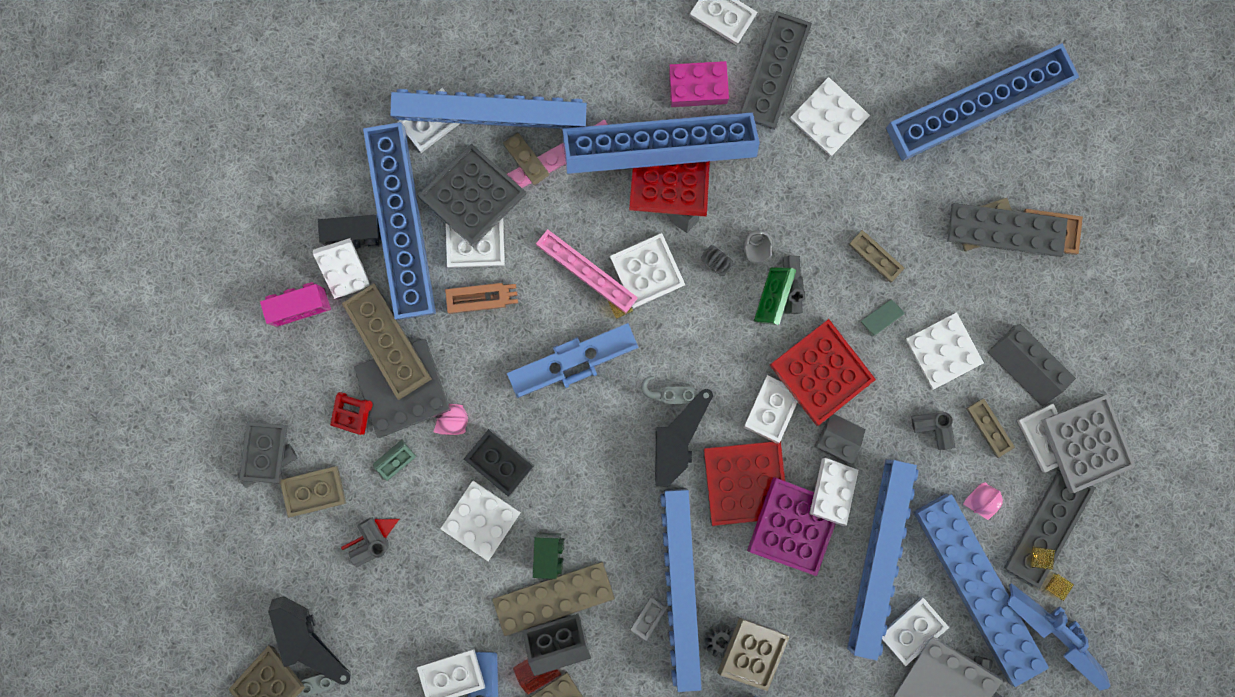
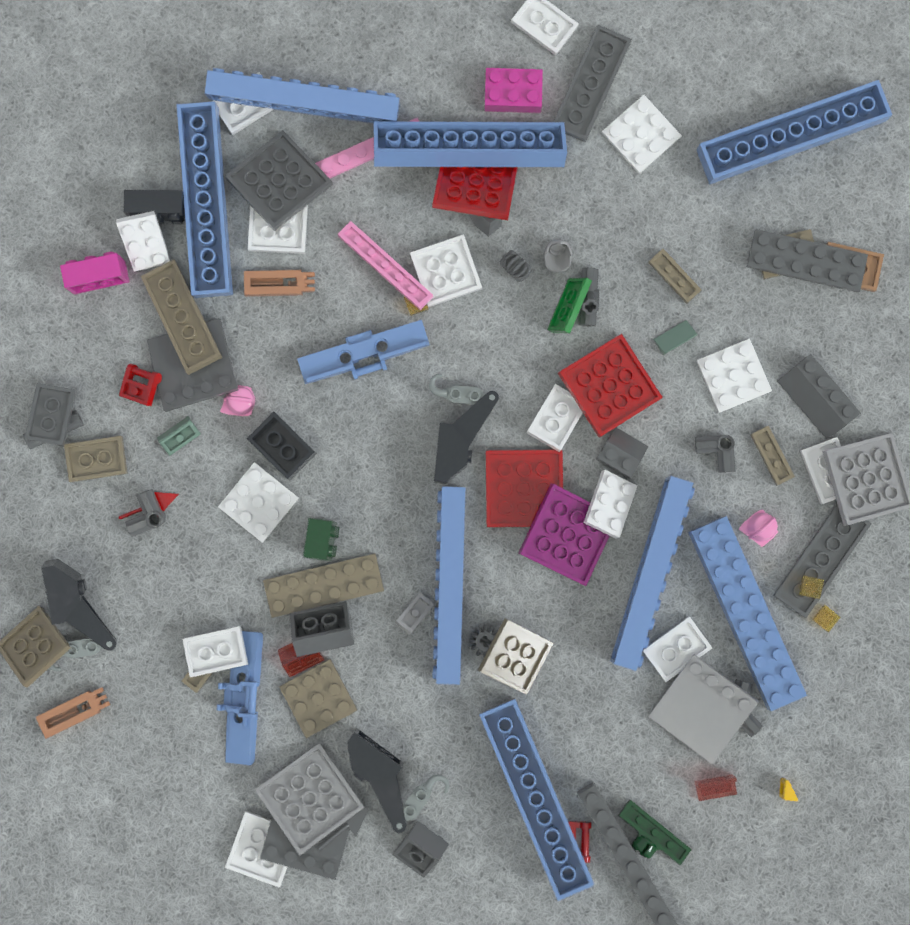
camera: 10 degrees right, 0 degrees up
(526, 159) = (335, 149): dark tan plate -> none
(1071, 636) = (833, 668): medium blue piece -> none

